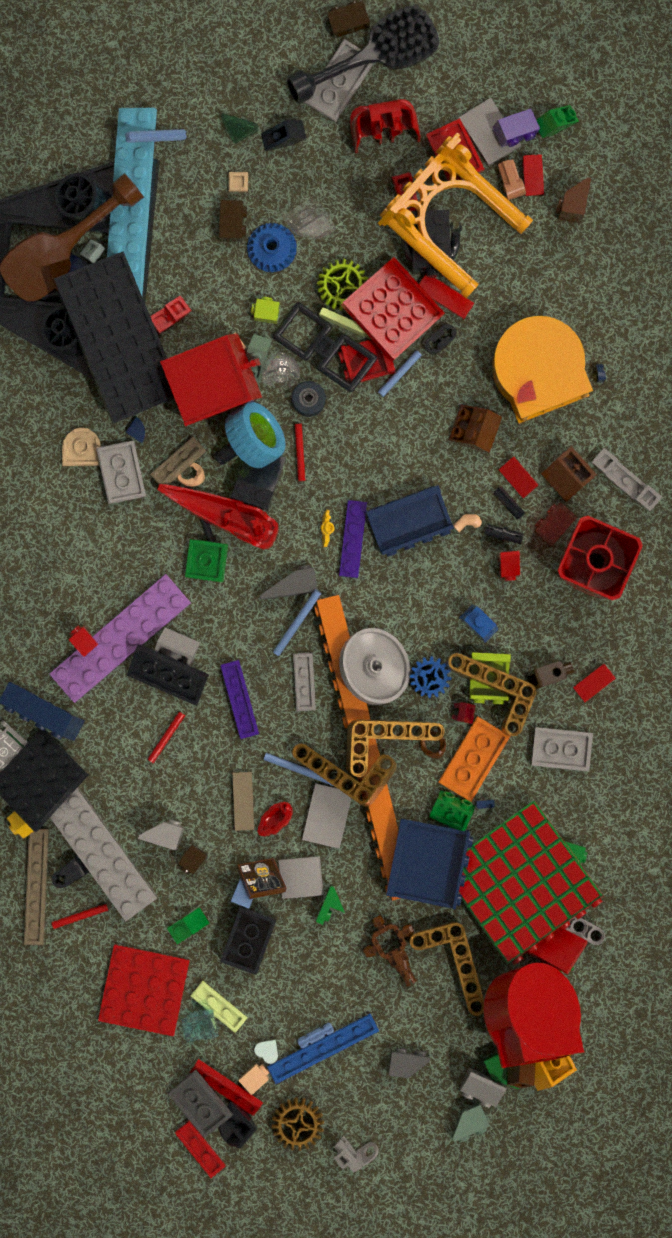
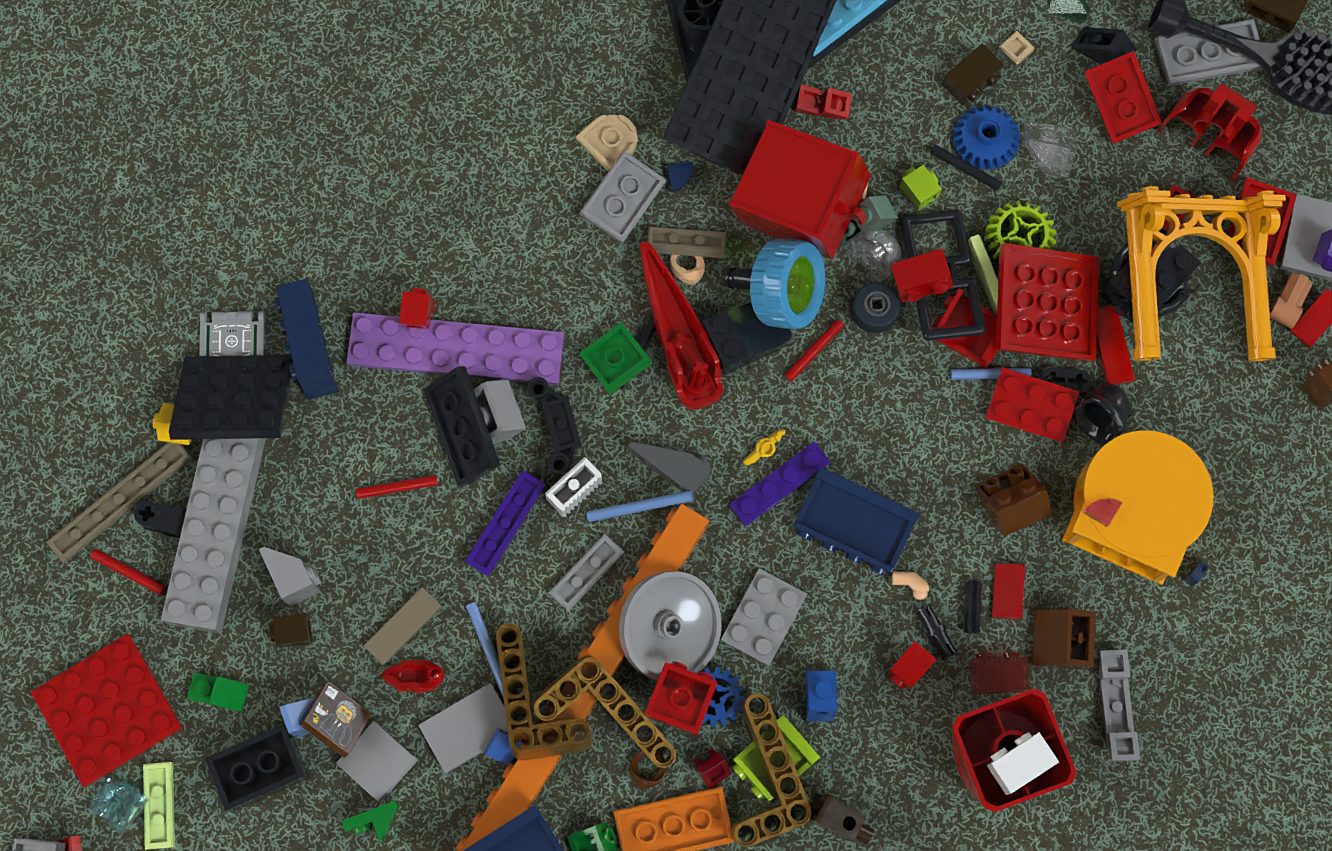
camera: 45 degrees right, 10 degrees down
(215, 622) = (560, 424): none -> black plate
(255, 646) = (574, 487): none -> white brick
(277, 275) = (965, 167): none -> black bar
(317, 361) = (922, 276): none -> red brick
(321, 155) = (1122, 97): none -> red plate
(353, 809) = (499, 747): none -> blue tile
(413, 613) = (763, 617): none -> light grey plate
(417, 695) = (681, 697): none -> red plate
(436, 369) = (1032, 404): none -> red plate
(476, 337) = (1103, 413): none -> black piece
(610, 561) = (1022, 763): none -> white brick

